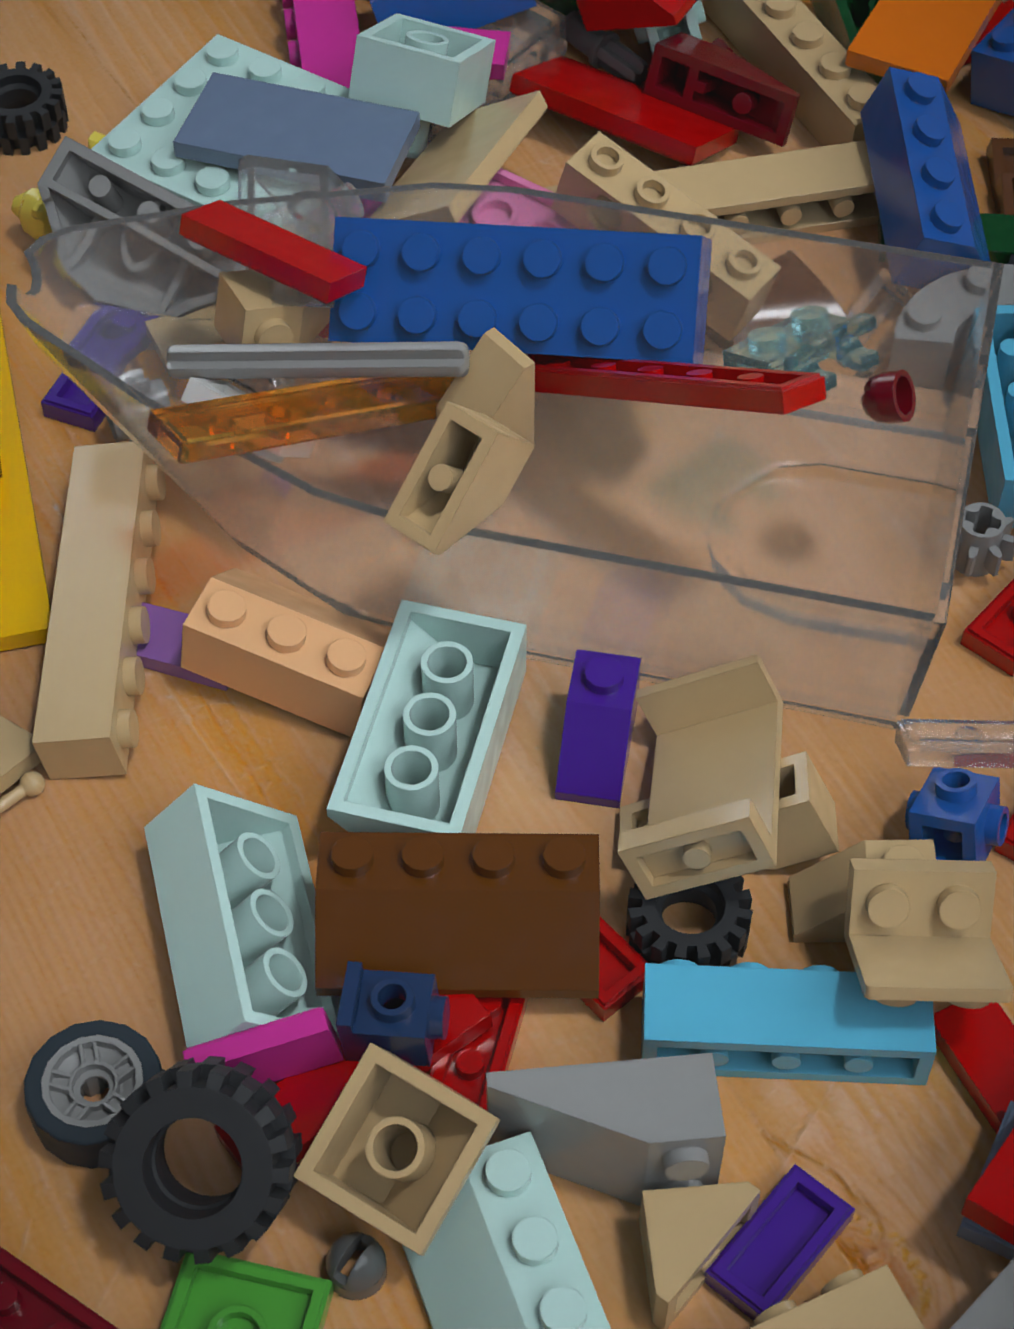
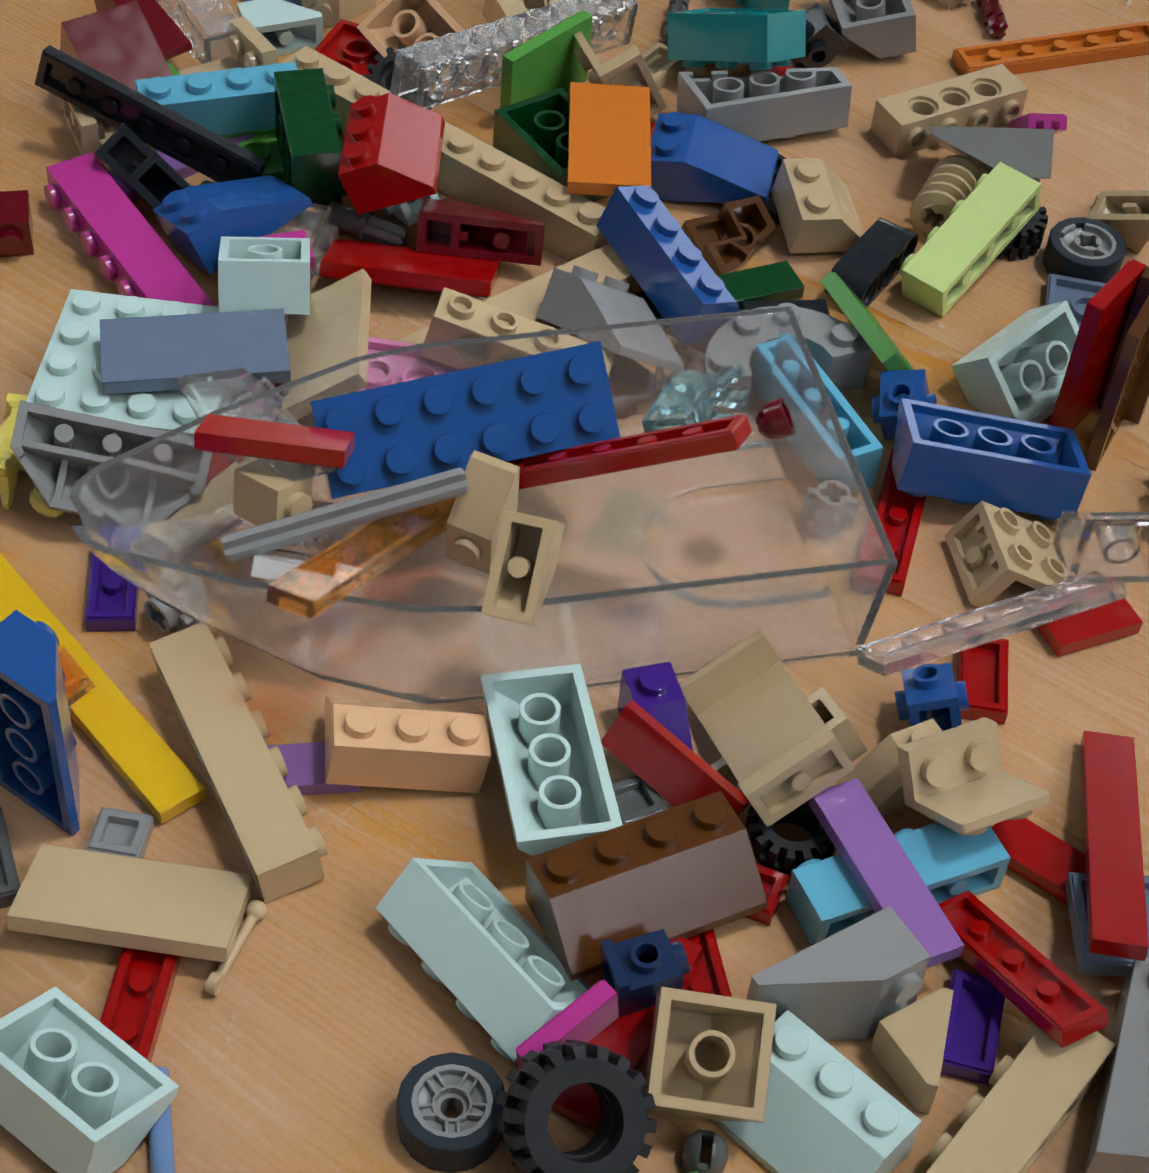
camera: 30 degrees left, 5 degrees down
(522, 807) = (636, 799): none -> dark grey tile
(573, 780) = (665, 760): none -> red tile
(753, 1014) = (883, 867): none -> medium lavender tile
(790, 197) = (581, 301): none -> light grey slope
(864, 1199) = (1023, 972): none -> red tile

